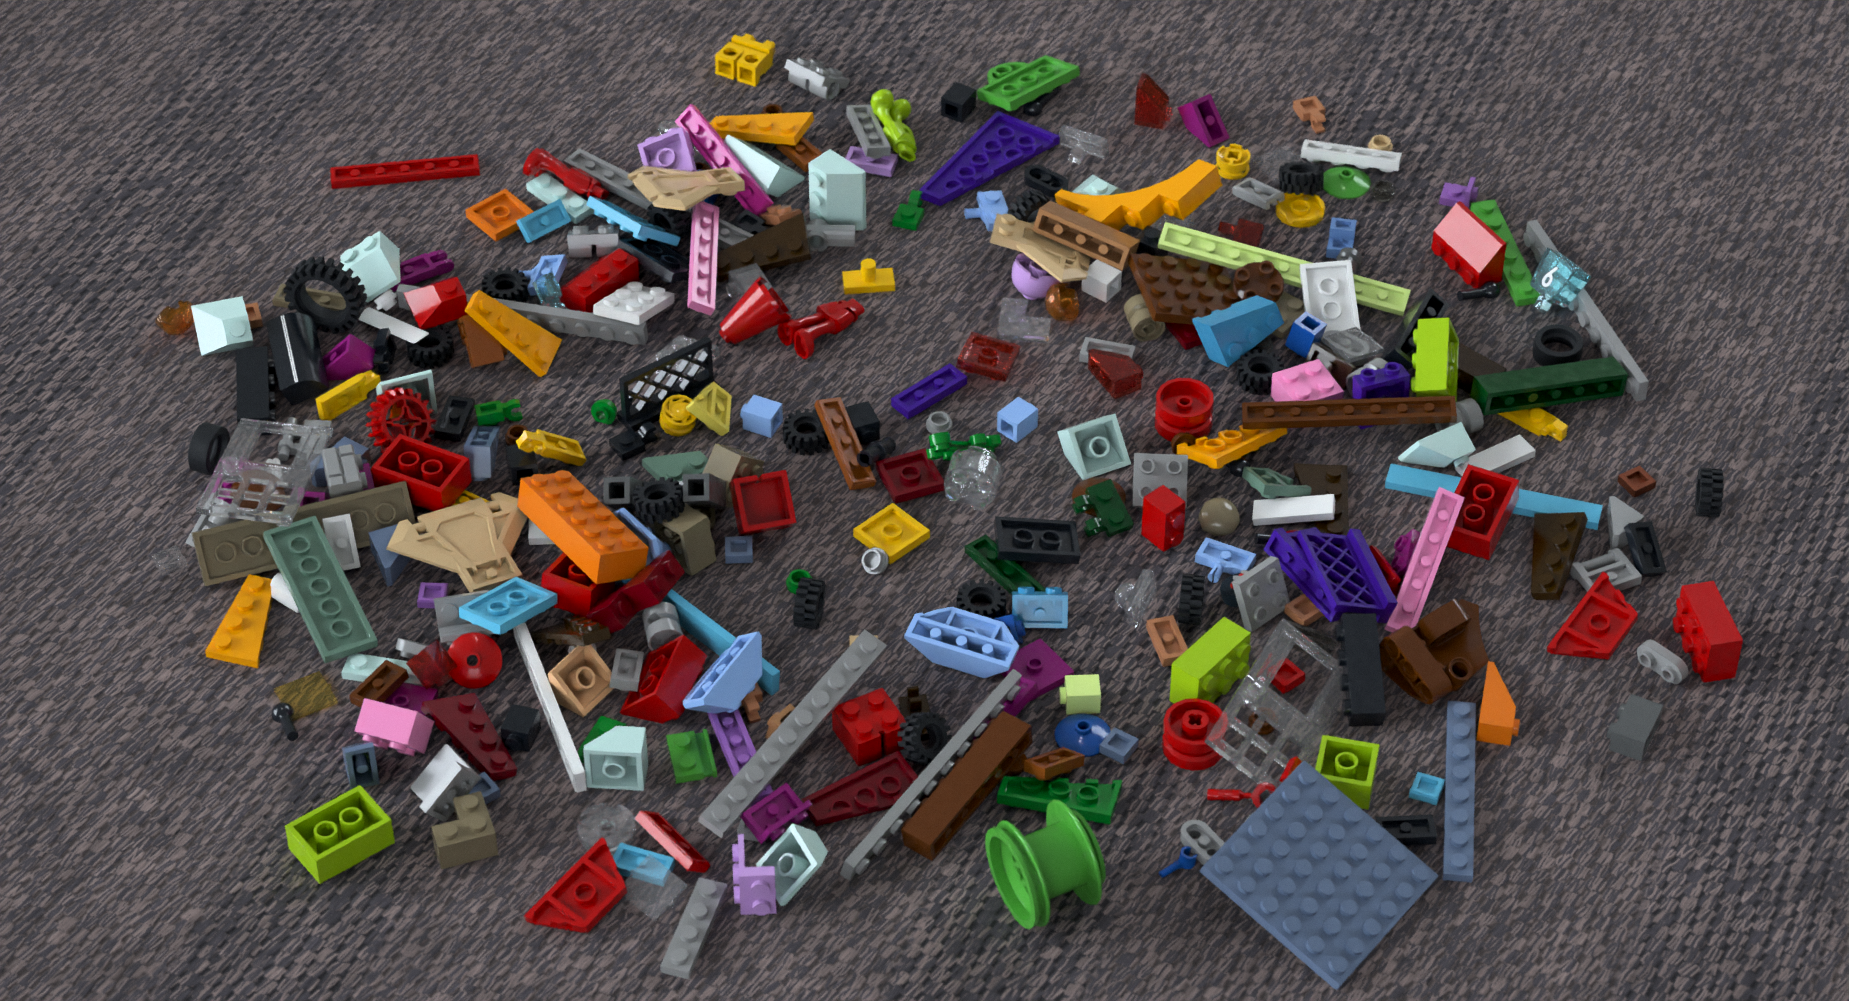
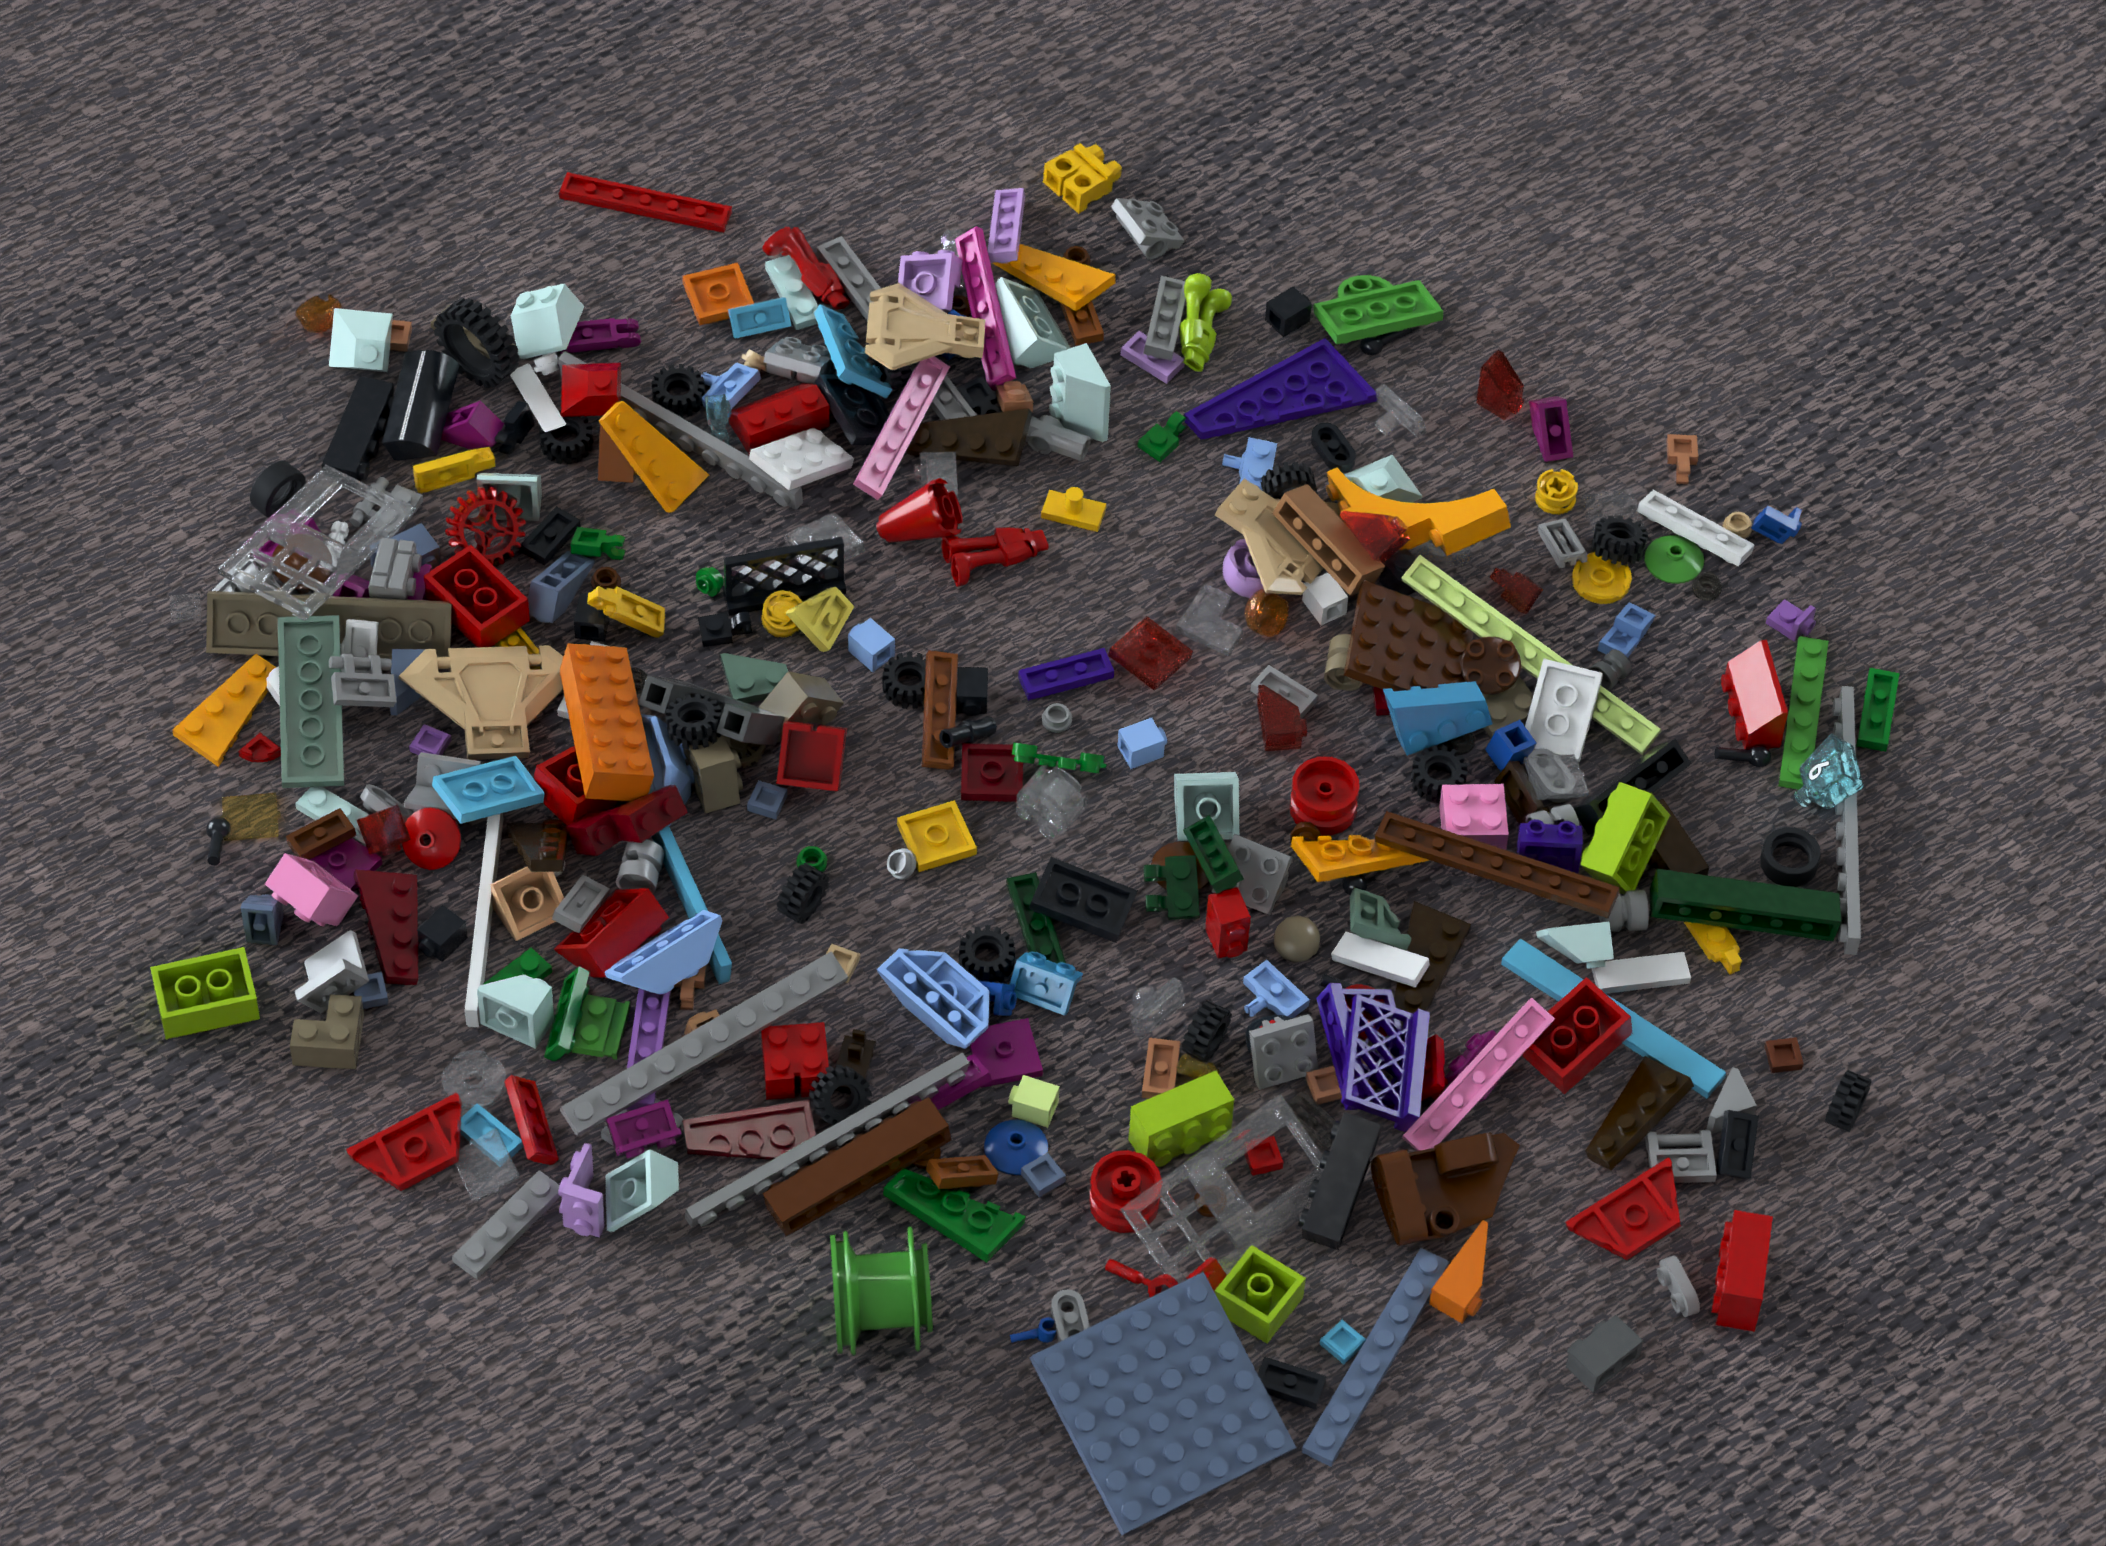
camera: 20 degrees right, 10 degrees up
(289, 642) = (260, 748): none -> red tile
(361, 564) = (362, 689): none -> light grey plate
(556, 248) = (754, 360): none -> tan plate
(660, 754) = (567, 1014): none -> green plate
(708, 103) = (1006, 225): none -> lavender plate
(1125, 214) = (1377, 533): none -> clear red slope
(1127, 472) = (1213, 854): none -> dark green plate
(1194, 629) = (1194, 1068): none -> clear yellow pin
(1410, 134) = (1776, 524): none -> blue bracket
(1559, 230) = (1877, 709): none -> green plate

